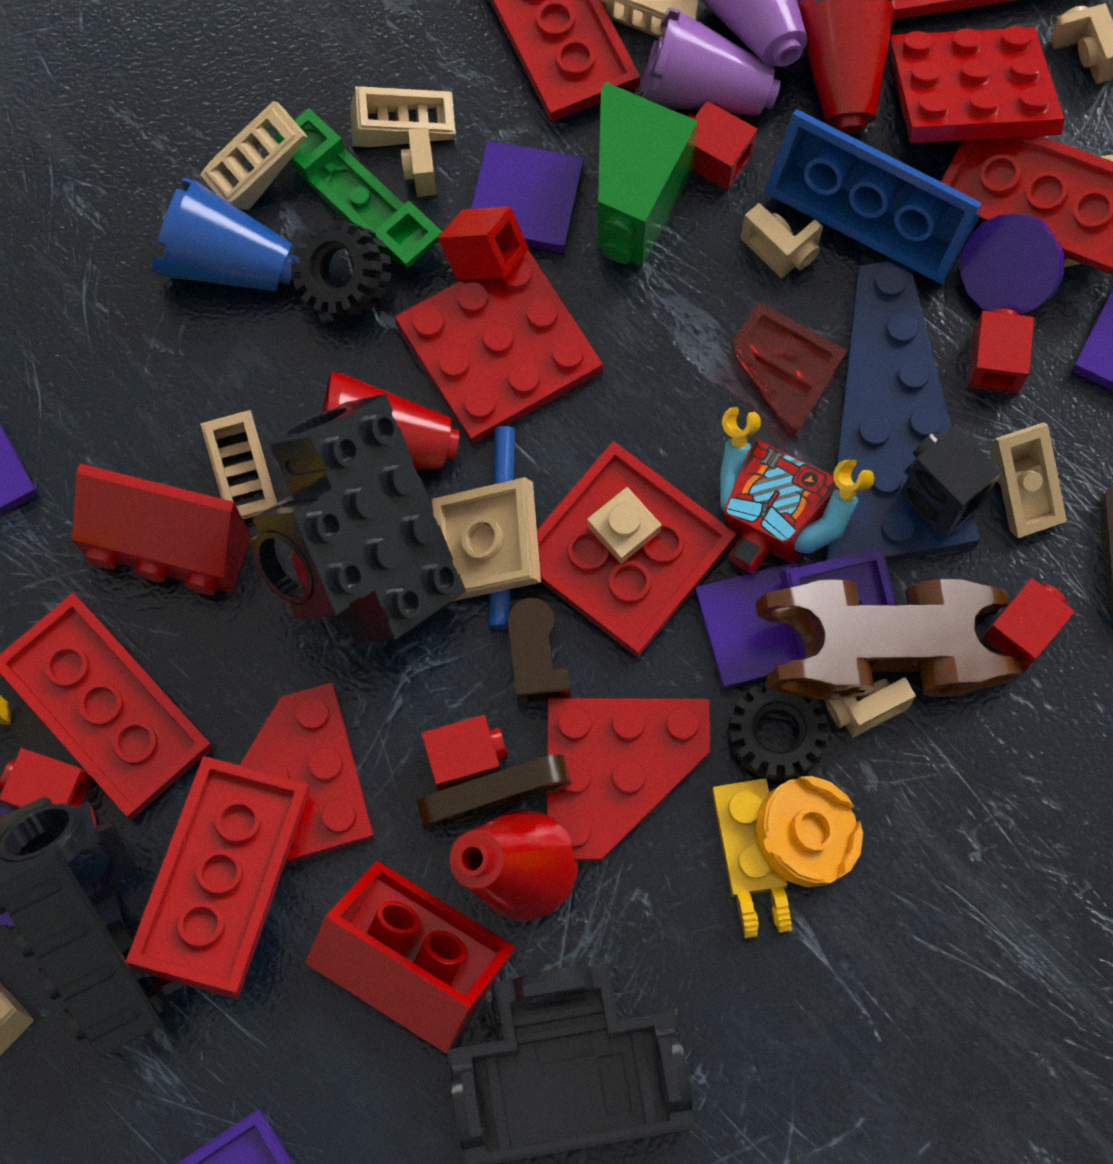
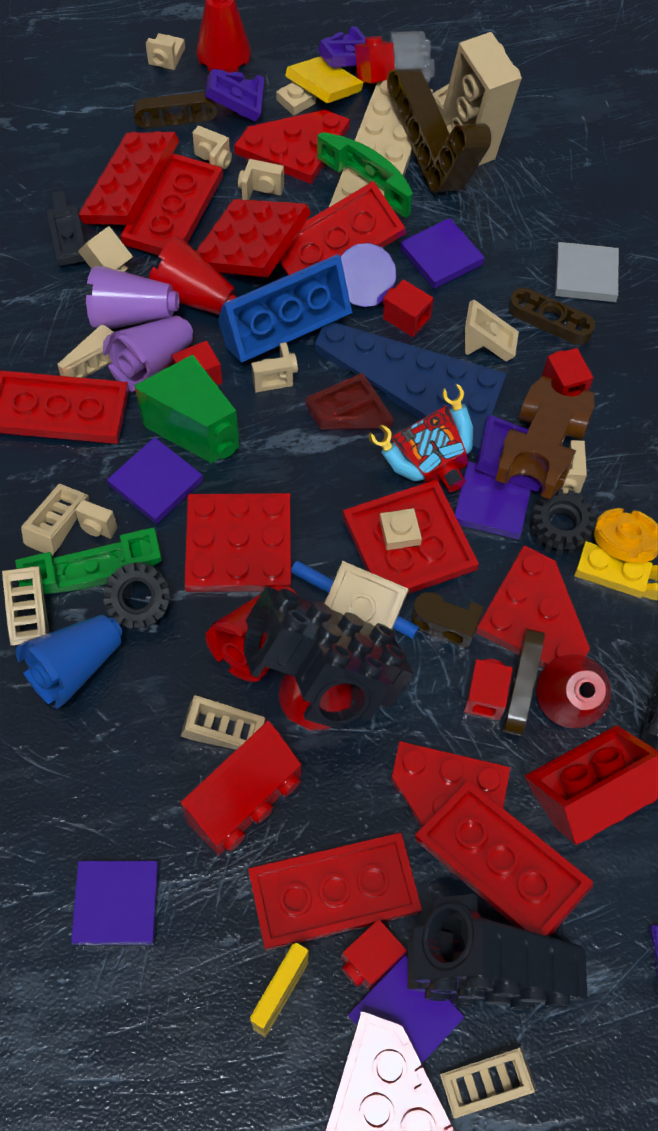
camera: 65 degrees left, 10 degrees down
(483, 243) = (176, 510): red brick -> none
(949, 479) = (479, 356): black brick -> none

